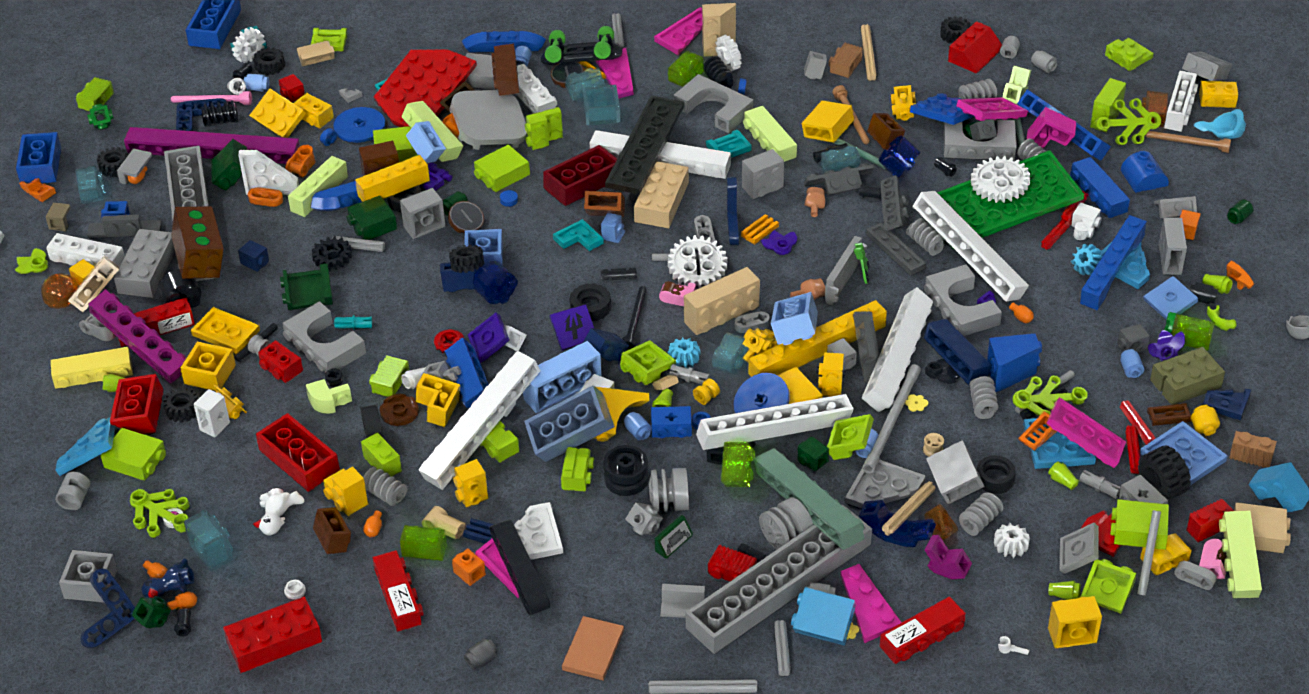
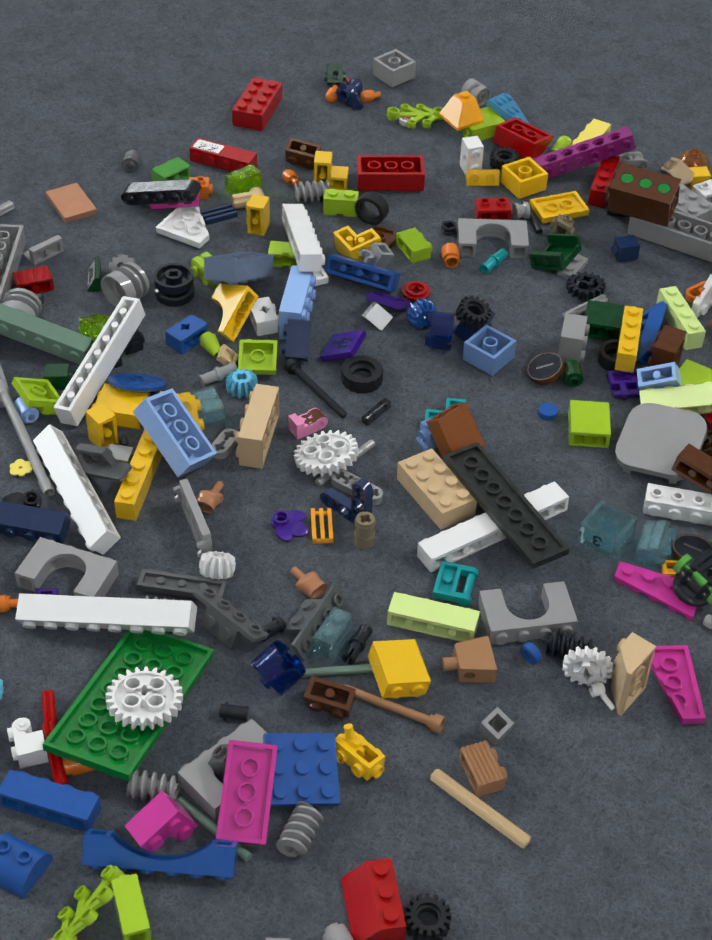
camera: 130 degrees right, 0 degrees up
(115, 614) = (355, 66): dark blue beam -> none
(144, 457) = (462, 111): none -> light orange slope
(183, 625) = (311, 85): black pin -> none
(209, 540) = (359, 108): clear light blue brick -> none
(264, 303) = (562, 225): none -> dark tan brick
(275, 505) = (348, 143): white animal -> none
(294, 589) = (282, 129): white plate -> none
(326, 399) = (430, 209): yellowish green brick -> none
(378, 347) = (450, 255): none -> orange brick
(411, 378) = (399, 256): white cone -> none
(467, 607) = (171, 170): none -> bright green brick
(482, 306) = (418, 312): none -> blue gear
(543, 128) = (608, 466): lime plate -> none
(579, 174) = (520, 453): dark red brick -> none
(637, 426) = (209, 316): medium blue brick -> none
(685, 68) = (604, 629): clear neon green brick -> none
(696, 418) = (170, 355): blue tile -> none
(707, 391) = (189, 368): yellow wheel -> none
(745, 196) = (364, 532): none -> dark tan piece
(763, 174) = (374, 557): light grey brick -> none
(780, 102) = (472, 661): none -> medium nougat torso
(860, 254) = (186, 536): bright green piece -> none
(867, 234) = (217, 565): none -> white gear
(1018, 84) = (264, 871): yellowish green brick -> none

